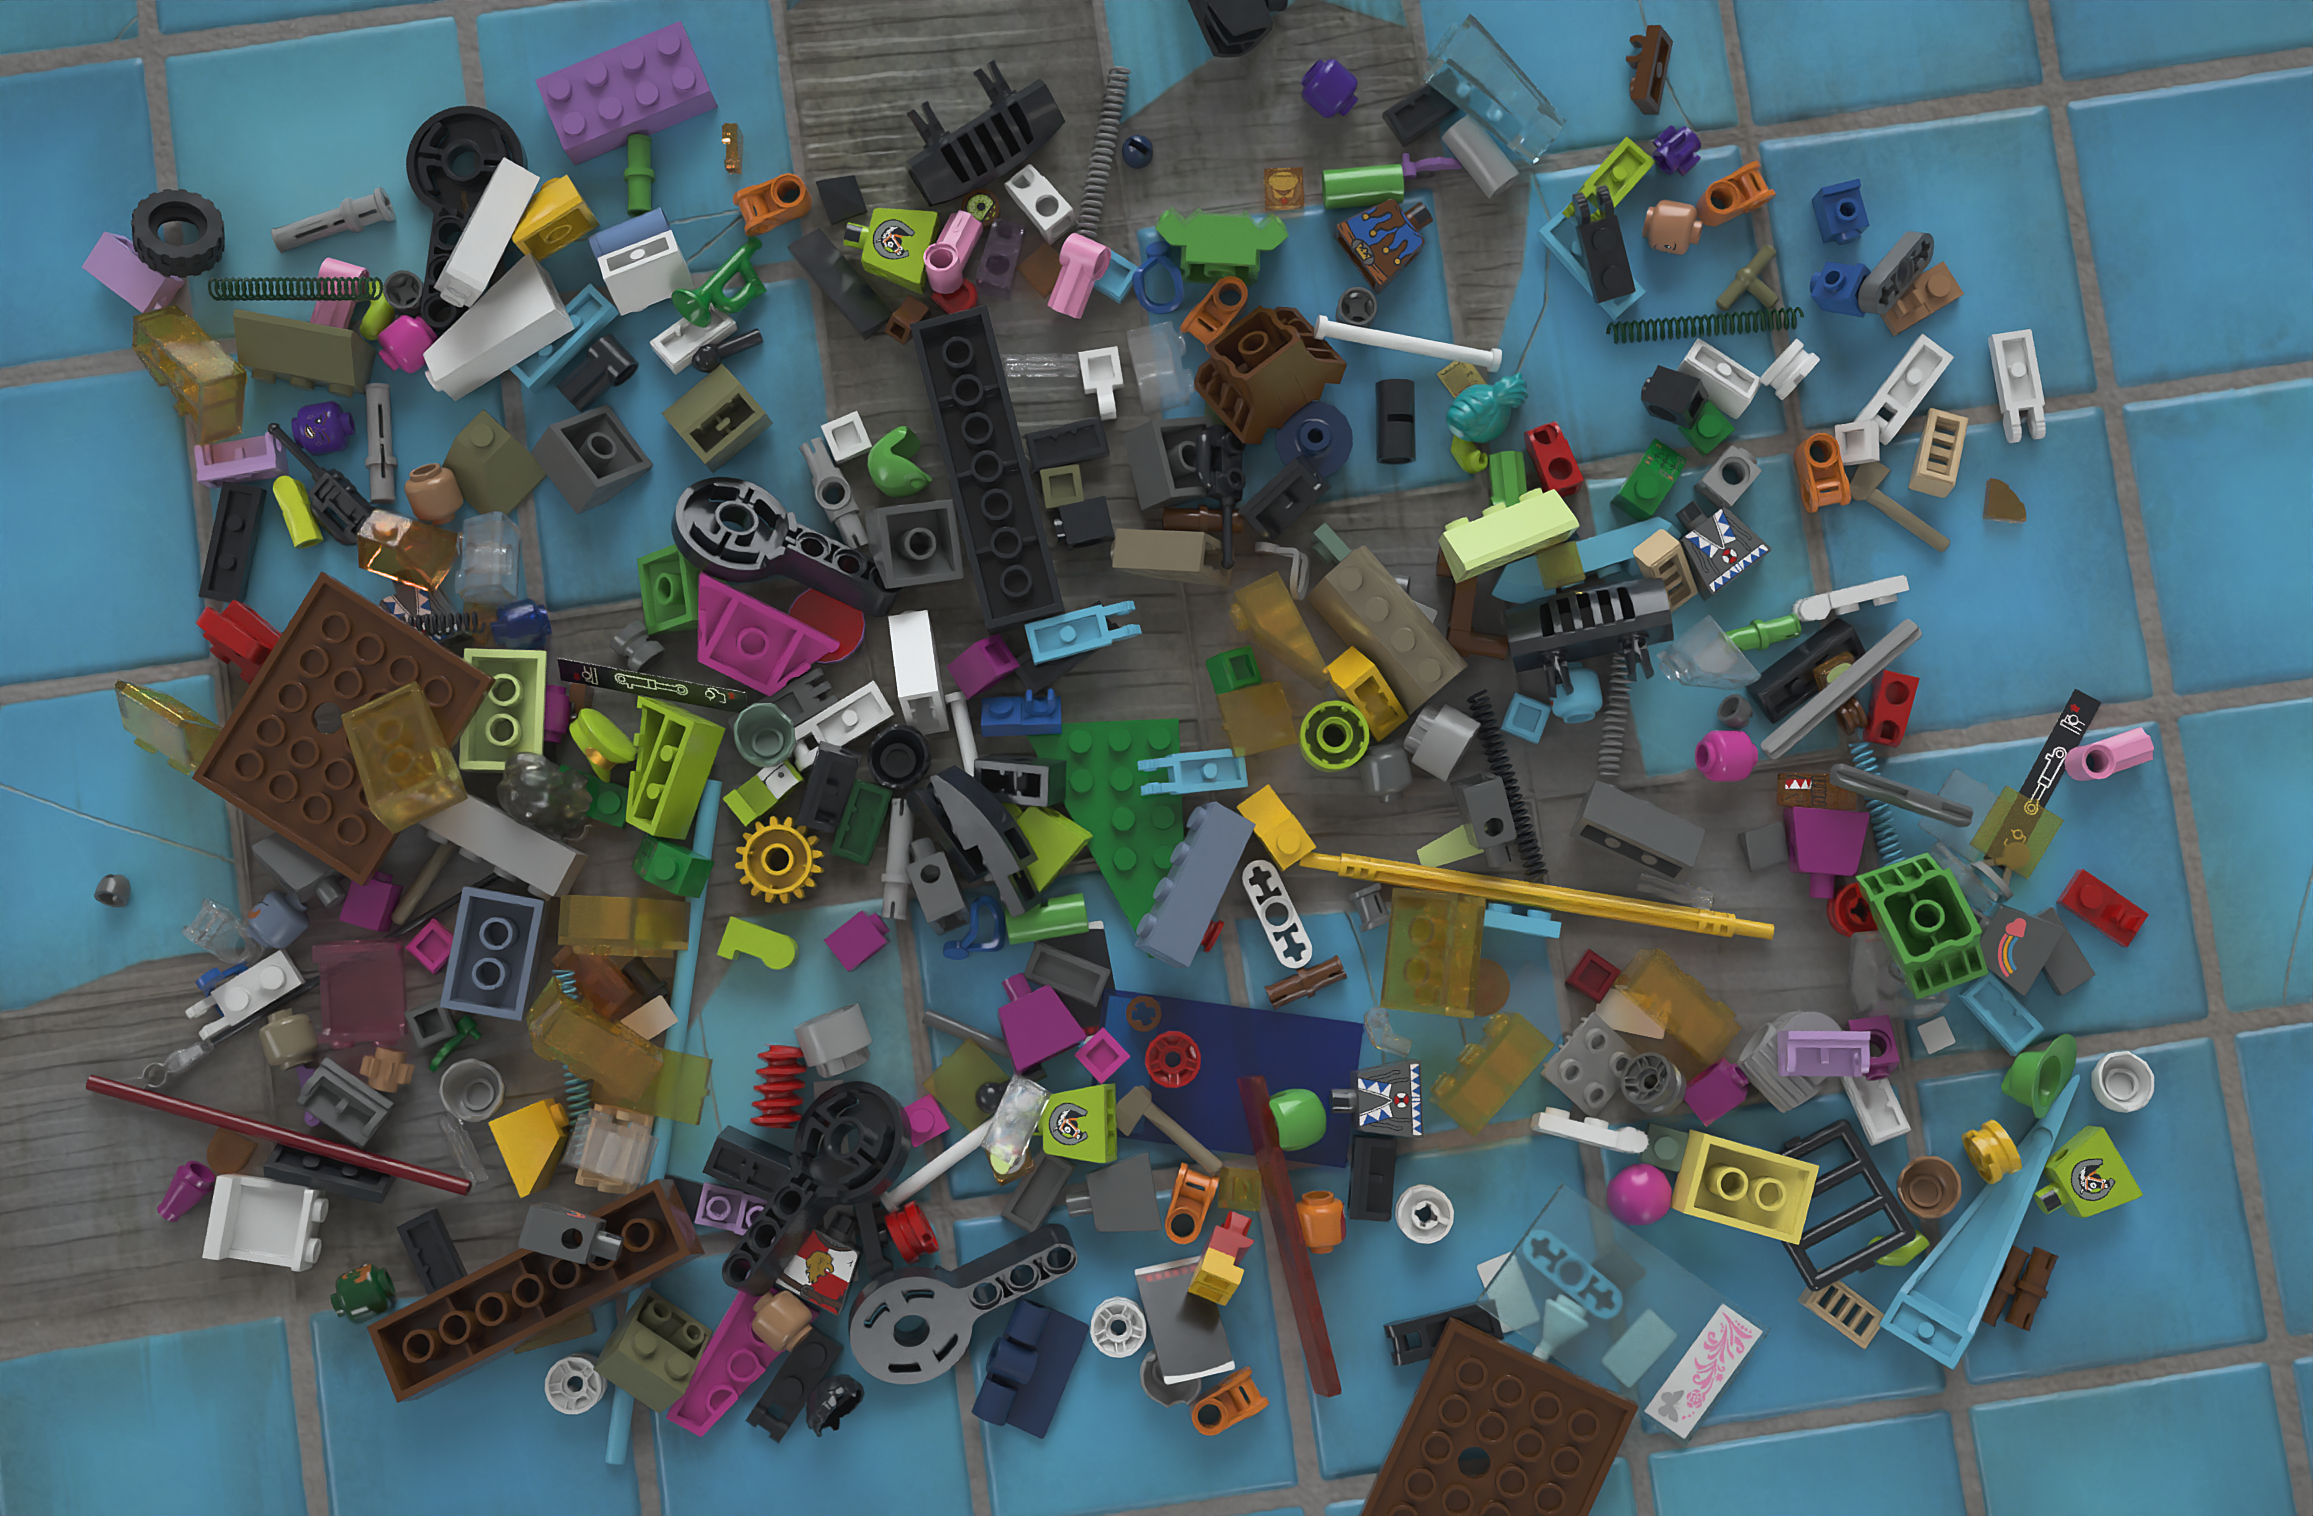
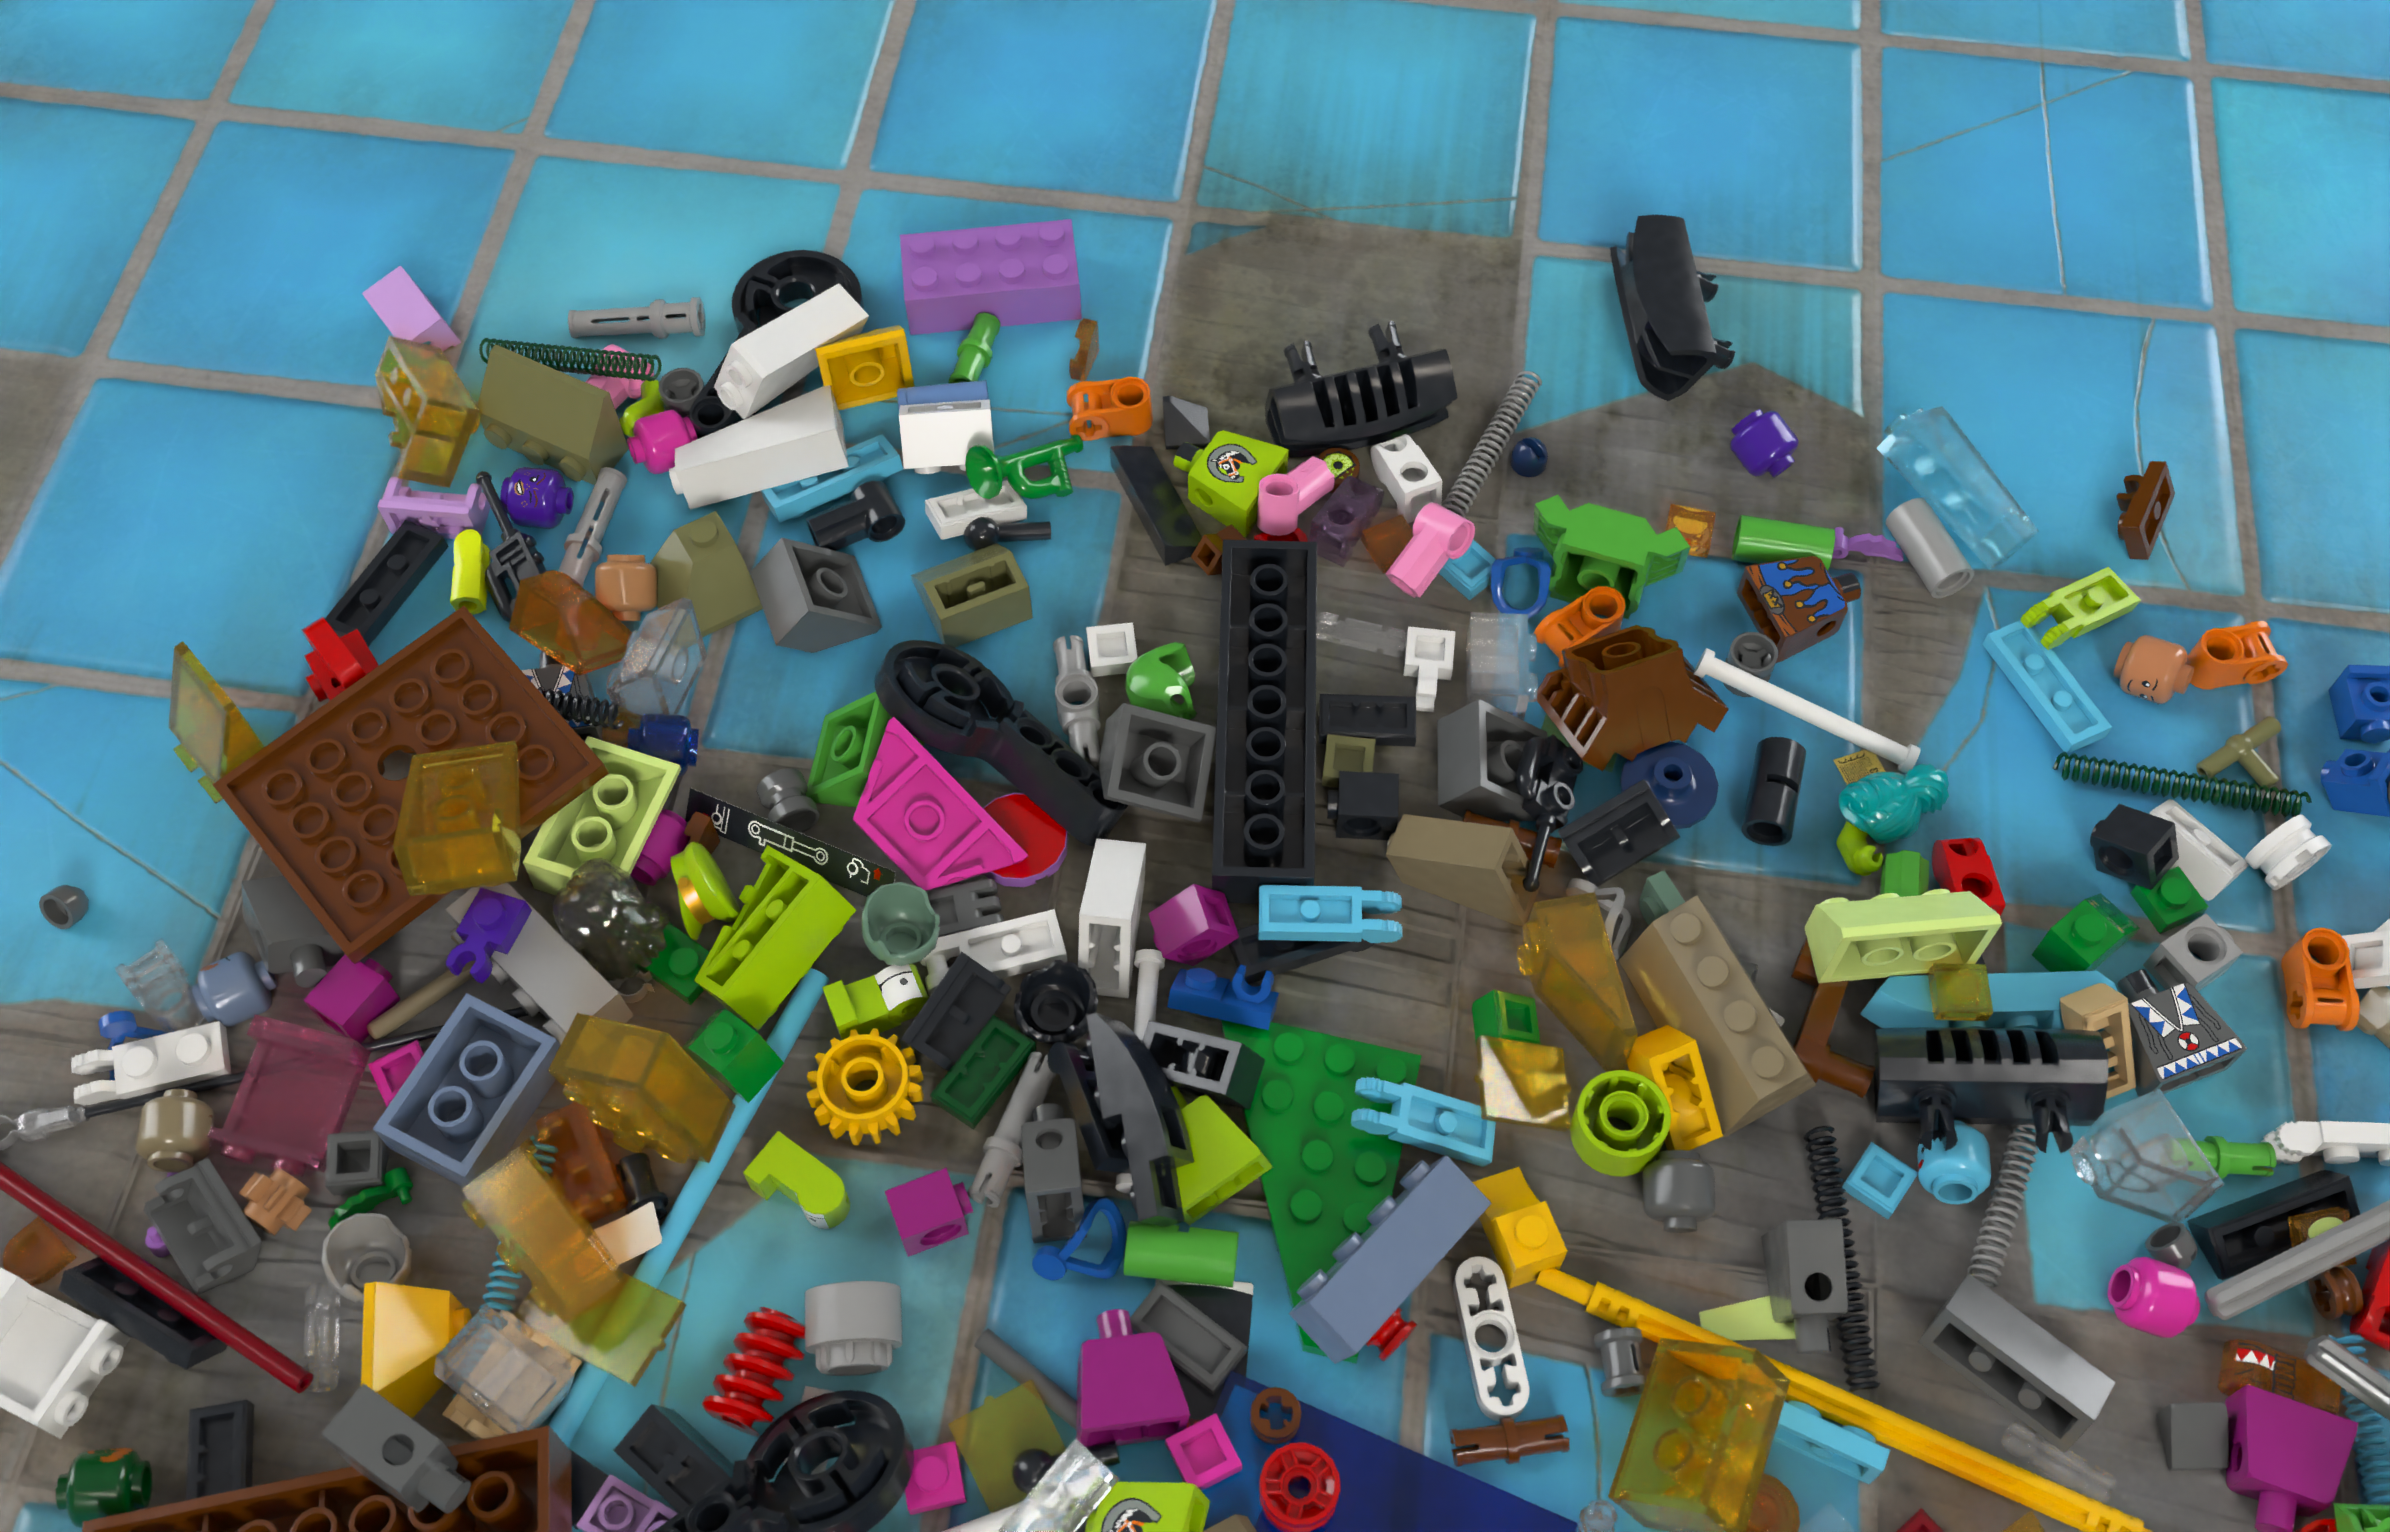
camera: 20 degrees right, 25 degrees down
(184, 207) = (470, 305): black tyre -> none
(458, 828) = (487, 927): none -> dark purple plate
(1418, 114) = (1866, 491): black plate -> none
(1440, 739) = (1763, 1168): light grey piece -> none
(1603, 248) = (2067, 659): black hinge -> none
(1676, 150) = (2168, 593): dark purple gear -> none

